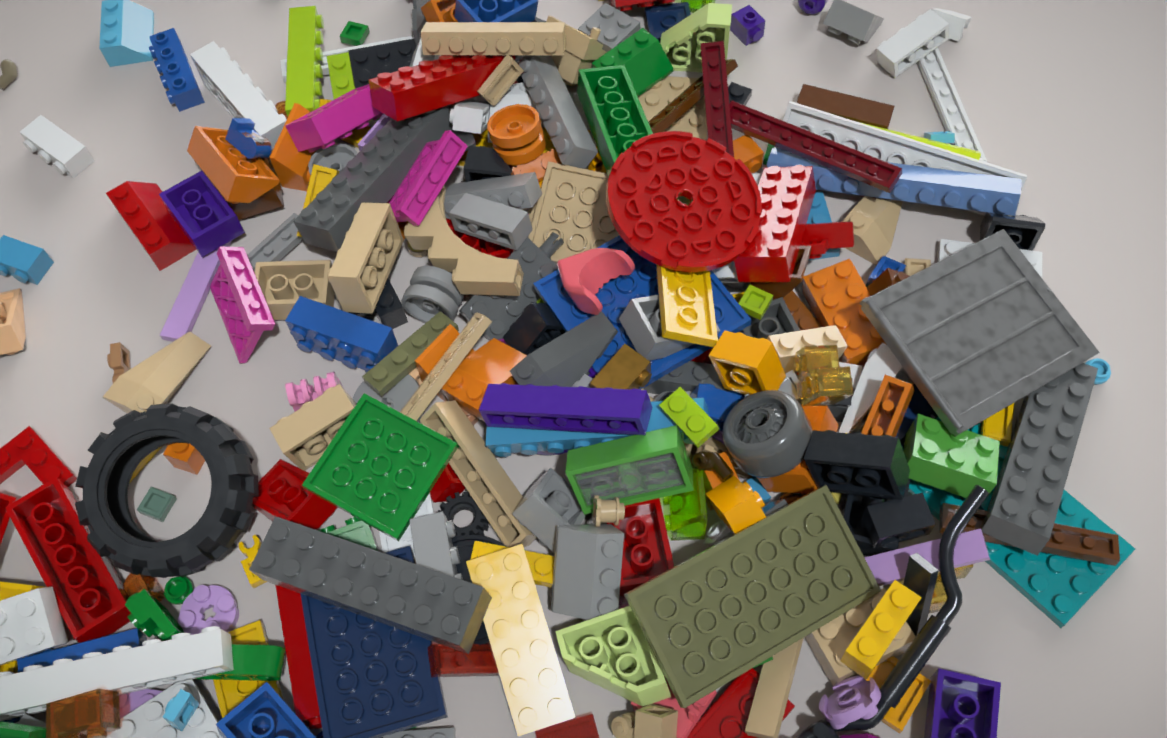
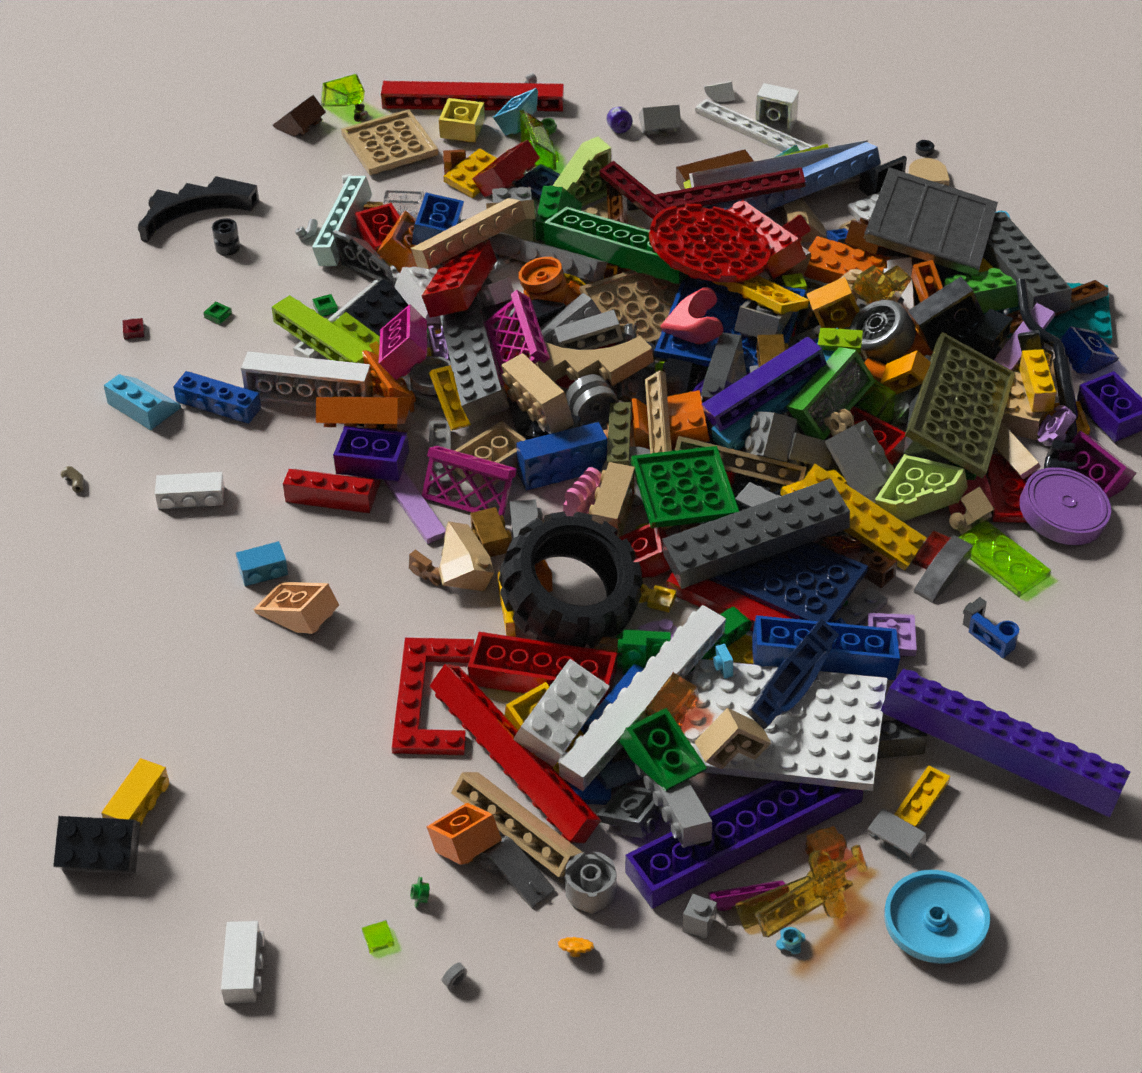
camera: 45 degrees left, 15 degrees down
(208, 370) = (491, 531): none -> pearl gold brick
(241, 386) = (522, 513): none -> light grey slope
(247, 140) = (367, 388): blue leg -> none
(487, 722) = (880, 568): none -> reddish brown brick
(500, 80) = (494, 259): tan tile -> none
(521, 472) = (770, 435): none -> light grey brick
(712, 462) = (873, 363): dark brown arm -> none
(912, 43) = (713, 111): white brick -> none
(980, 77) = (777, 107): none -> white brick
(1012, 620) = (1087, 350): none -> clear blue slope
(1074, 256) = (930, 169): none -> tan tile
(1105, 223) = (924, 148): none -> black tile

